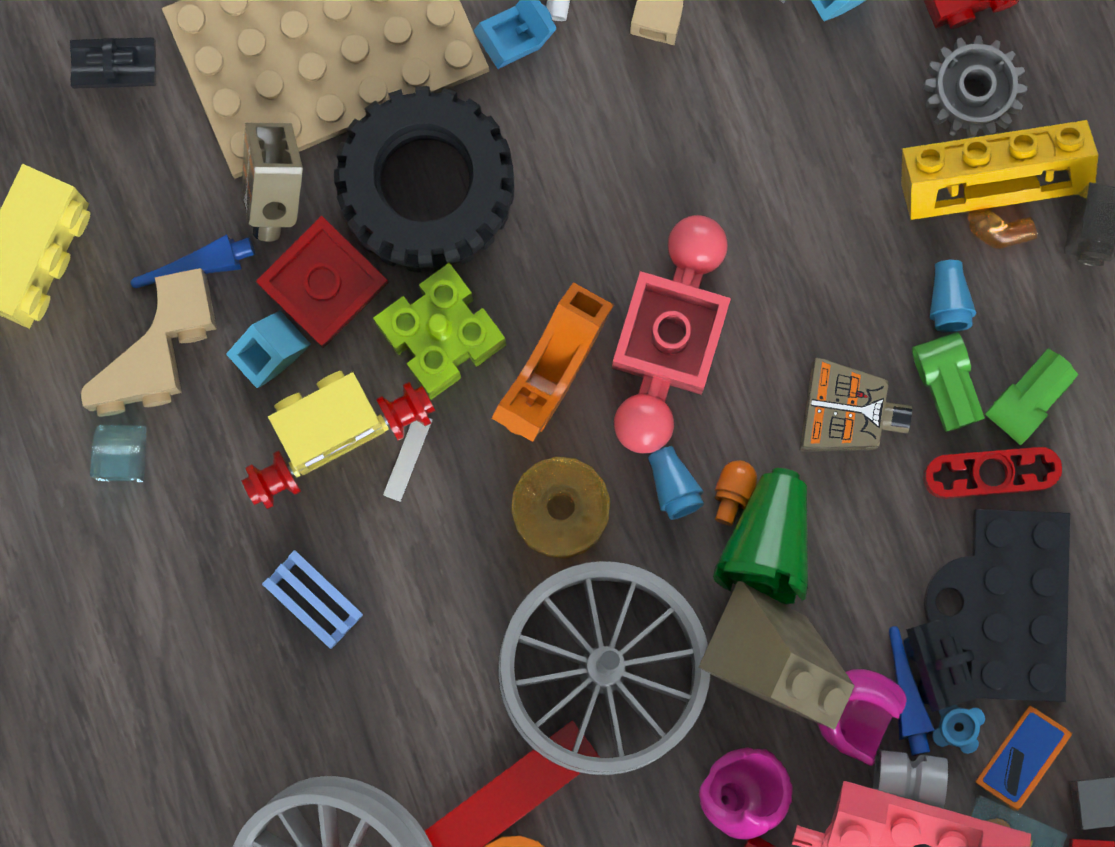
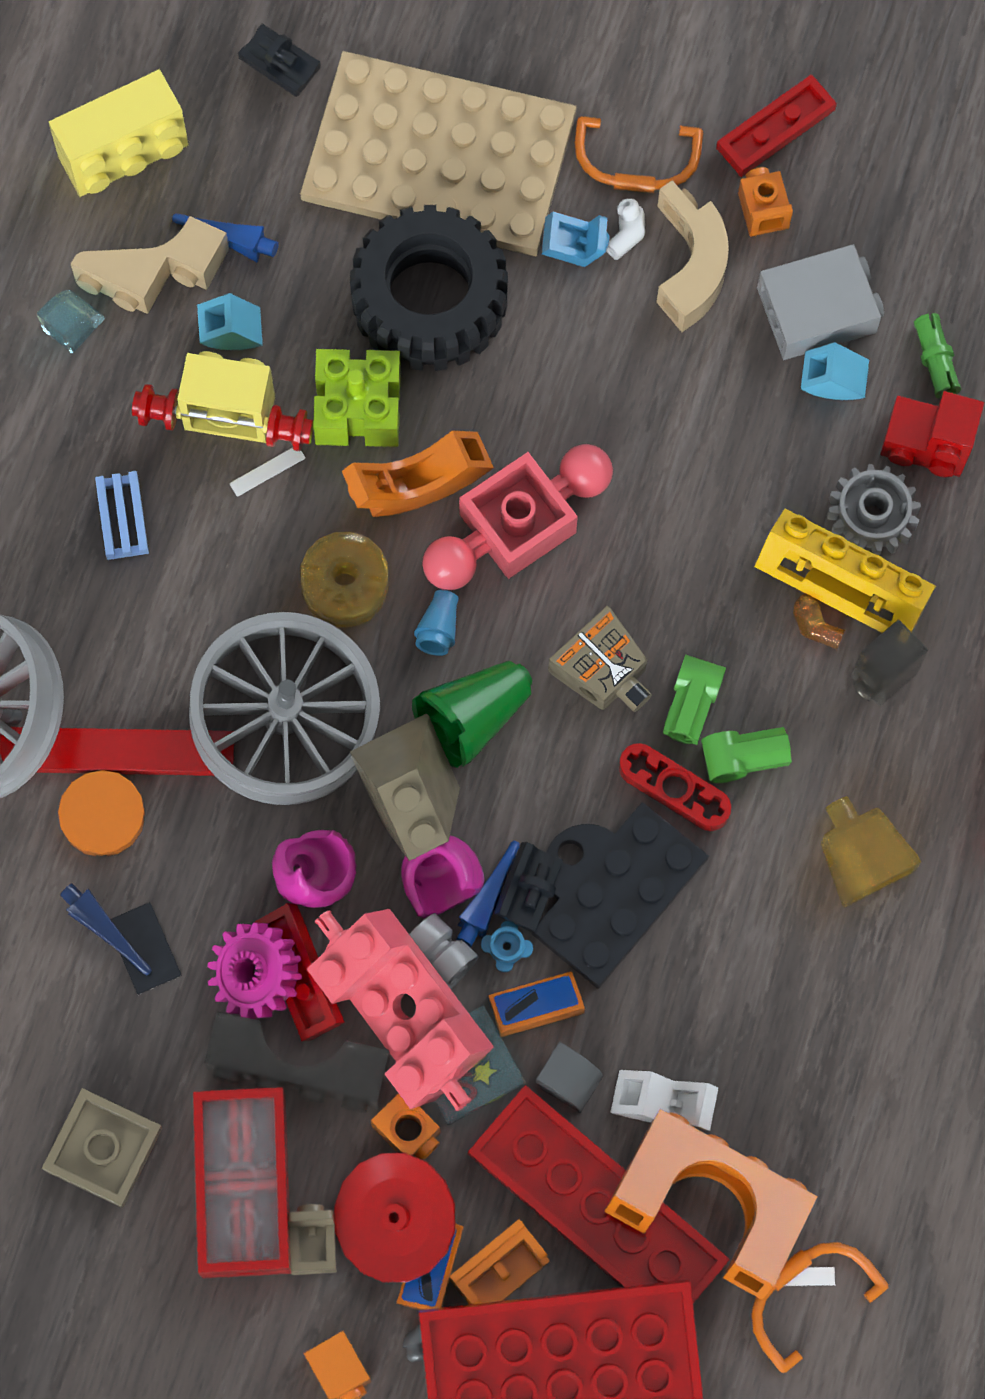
camera: 35 degrees right, 10 degrees down
(270, 178) = (321, 209): dark tan torso -> none
(322, 281) = (303, 308): red plate -> none
(734, 490) = (478, 657): orange cylinder -> none
(951, 298) = (739, 645): dark azure cone -> none

